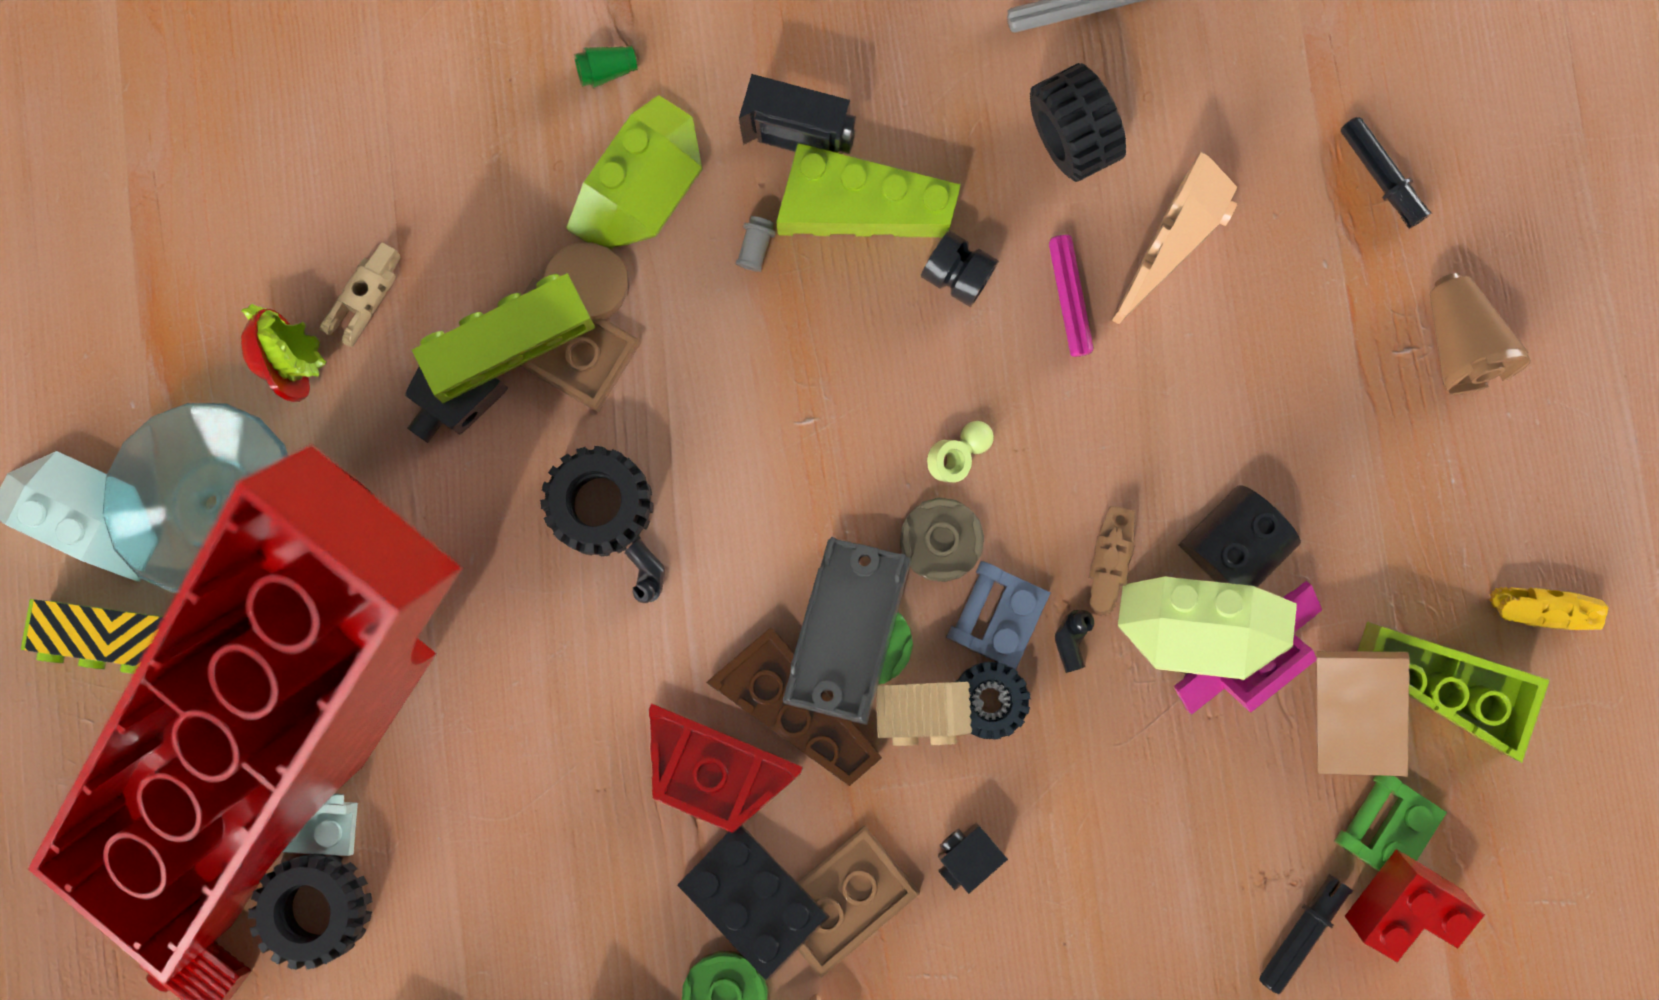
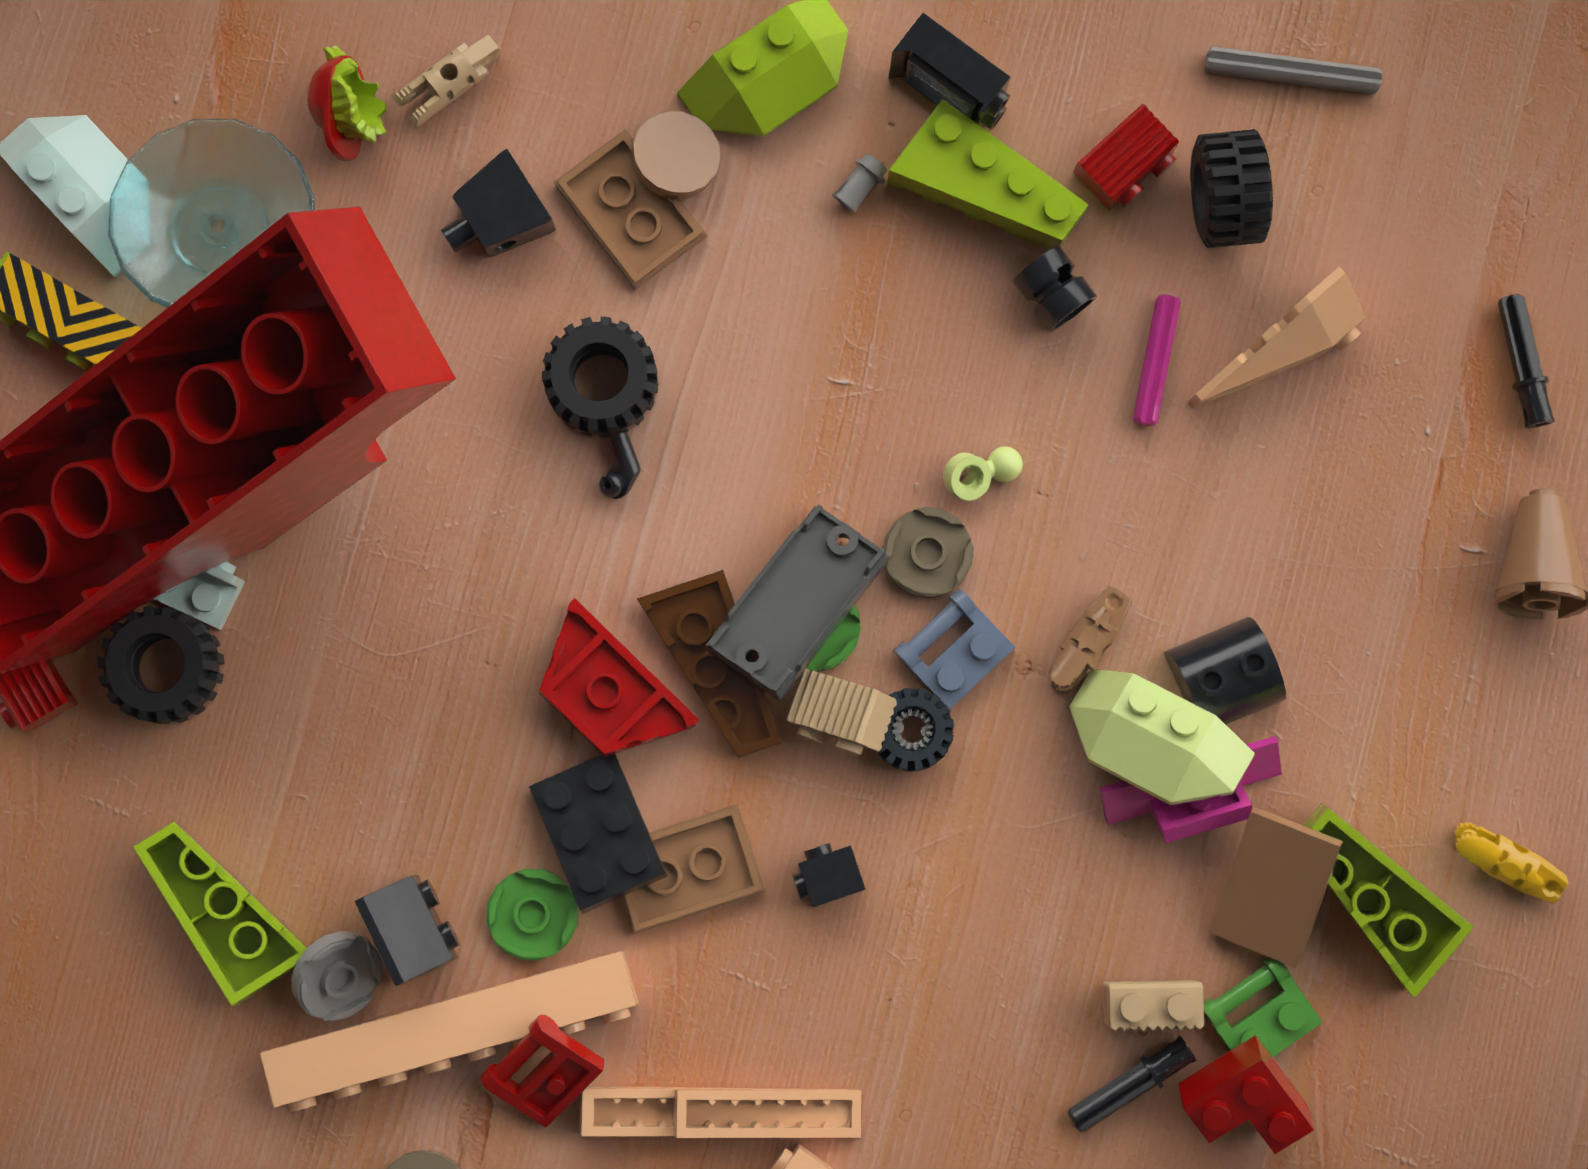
camera: 15 degrees right, 0 degrees up
(503, 337) = (573, 177): lime brick -> none
(975, 132) = (1127, 157): none -> red brick
(1069, 637) = (1018, 698): black arm -> none
(1297, 857) = (1153, 1005): none -> tan brick

